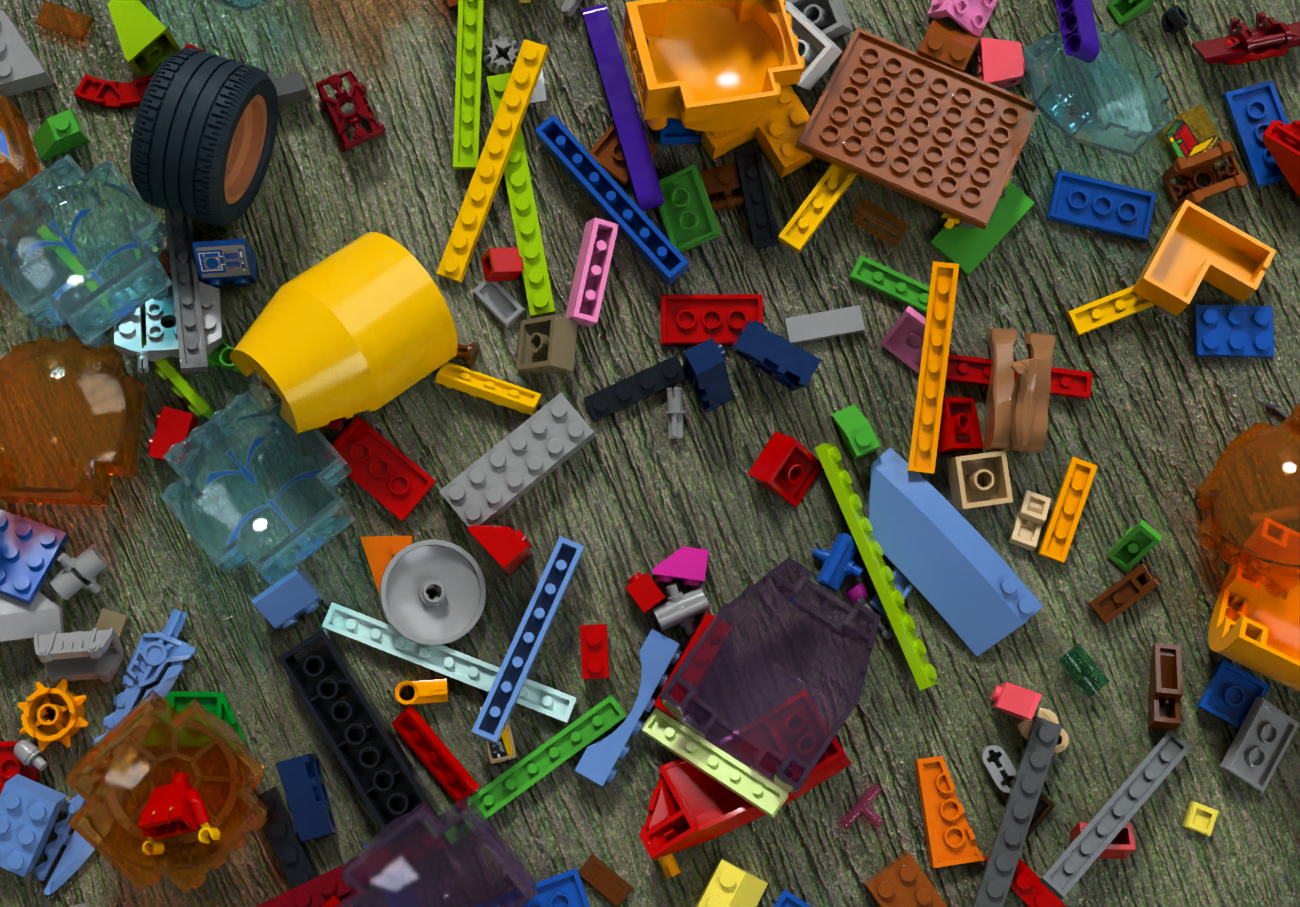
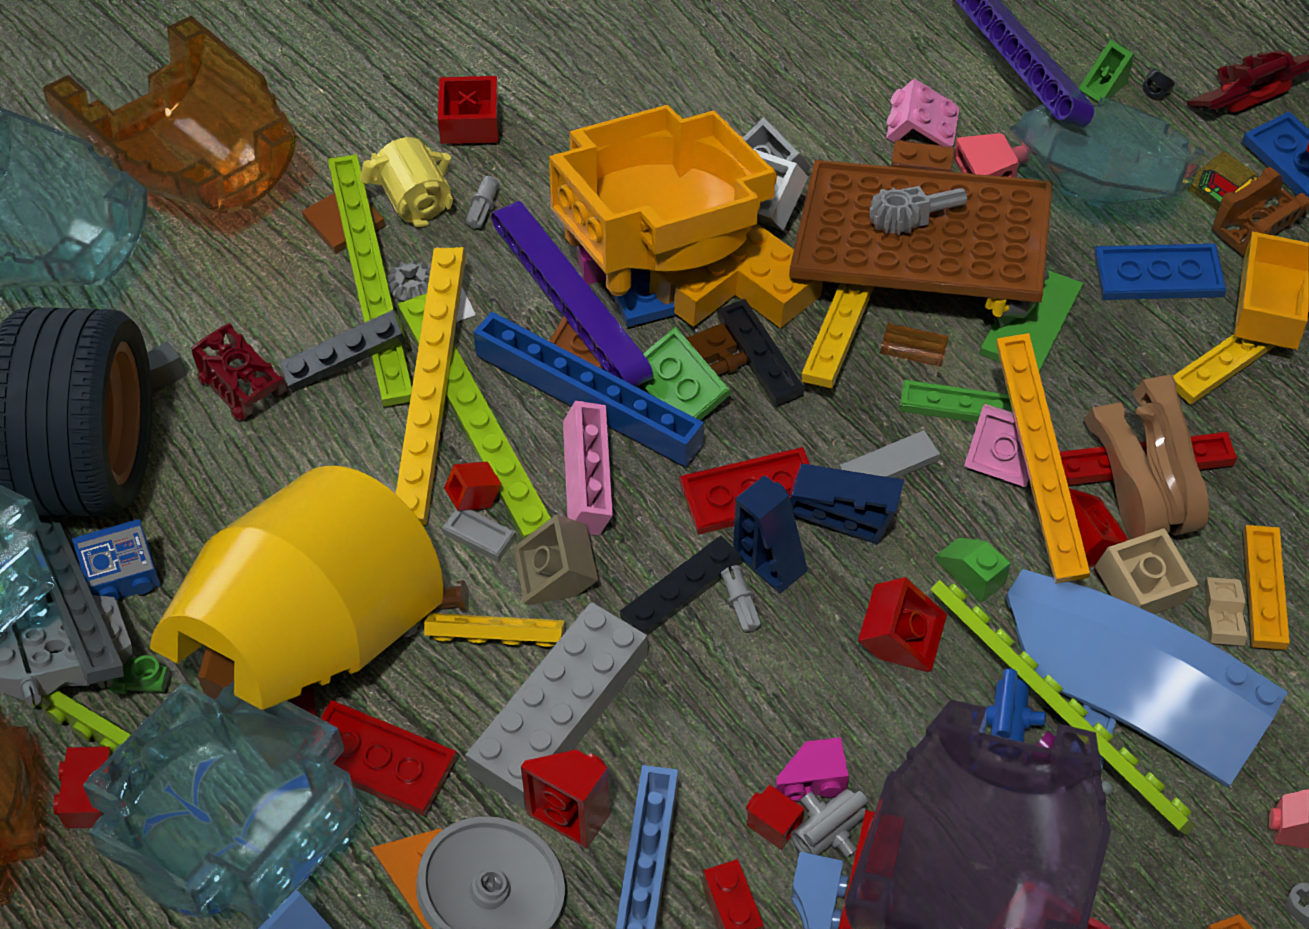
camera: 15 degrees left, 25 degrees down
(433, 113) = (342, 350): none -> black plate
(913, 109) = (910, 207): none -> light grey gear

